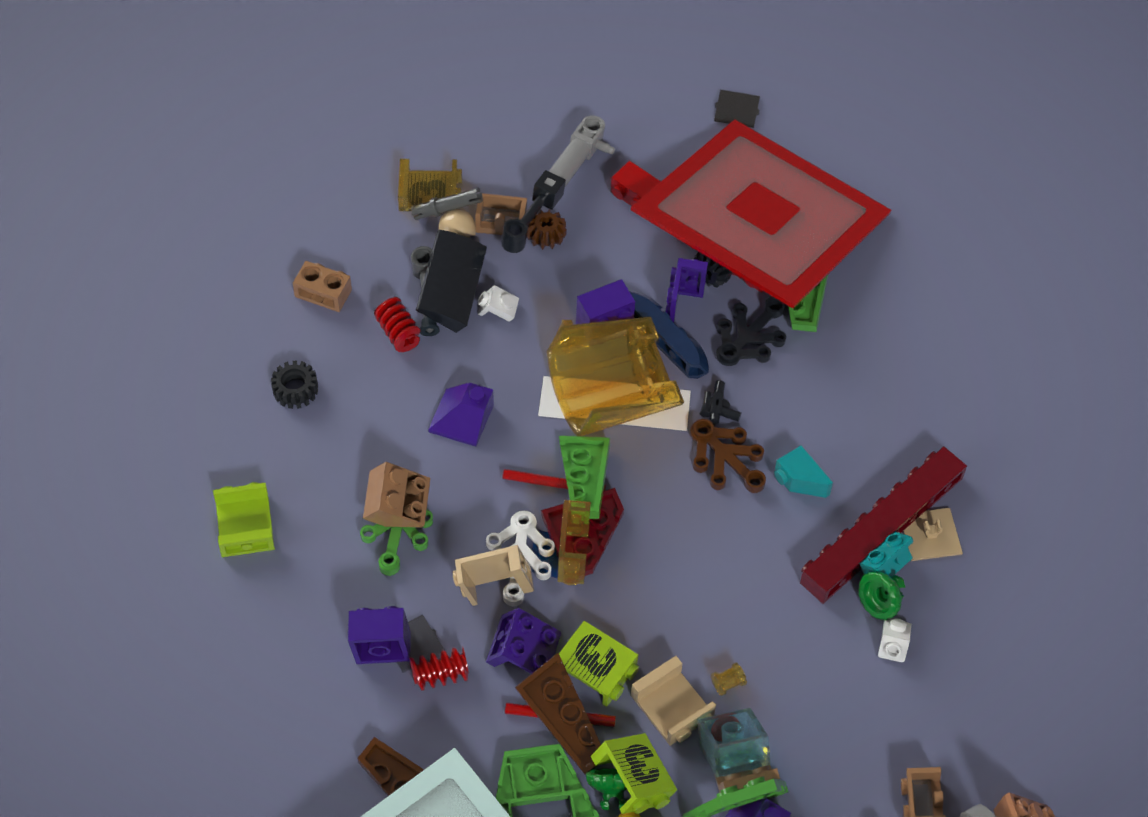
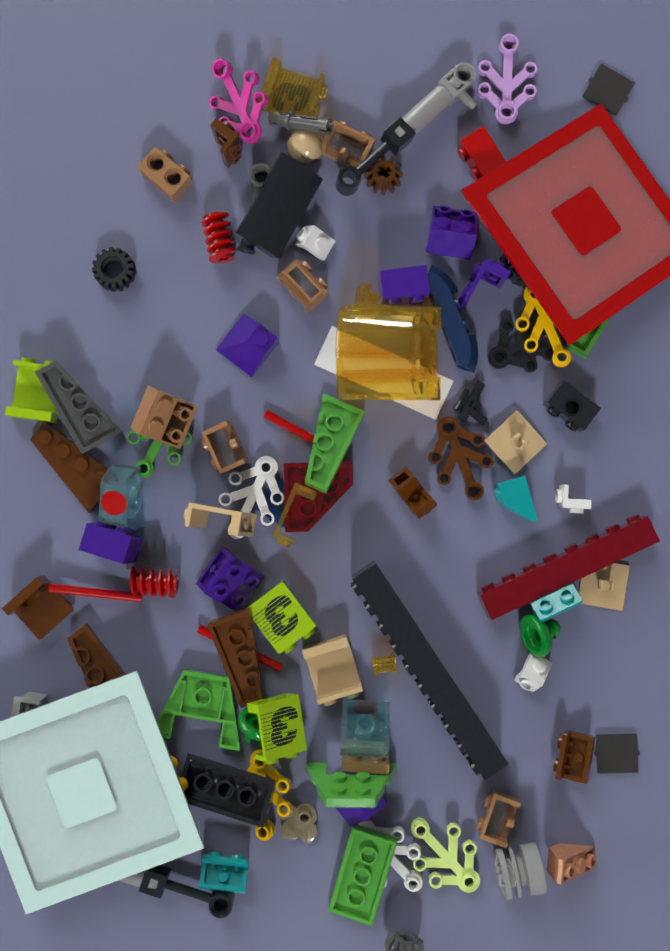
camera: 20 degrees right, 30 degrees up
(305, 527) = (80, 414): none -> dark grey wing
(313, 735) = (38, 607): none -> reddish brown bracket
(315, 585) = (77, 470): none -> reddish brown wing
(373, 580) = (120, 495): none -> clear light blue brick
(376, 702) = (94, 592): none -> red bar
(378, 237) = (229, 140): none -> reddish brown bracket
(380, 205) = (240, 103): none -> dark pink plant
(471, 514) = (224, 447): none -> medium nougat window
(501, 342) = (303, 284): none -> medium nougat window
(626, 98) = (506, 84): none -> lavender plant
(635, 258) = (452, 232): none -> dark purple slope
(688, 499) = (412, 493): none -> reddish brown brick
(761, 307) = (545, 323): none -> yellow plant
(778, 425) = (515, 442): none -> tan piece
(779, 661) = (430, 672): none -> black brick
(814, 365) = (584, 408): none -> black brick
(862, 462) = (575, 505): none -> white bracket
(979, 709) = (574, 756): none -> reddish brown bracket
(1024, 697) = (617, 753): none -> clear smoke piece

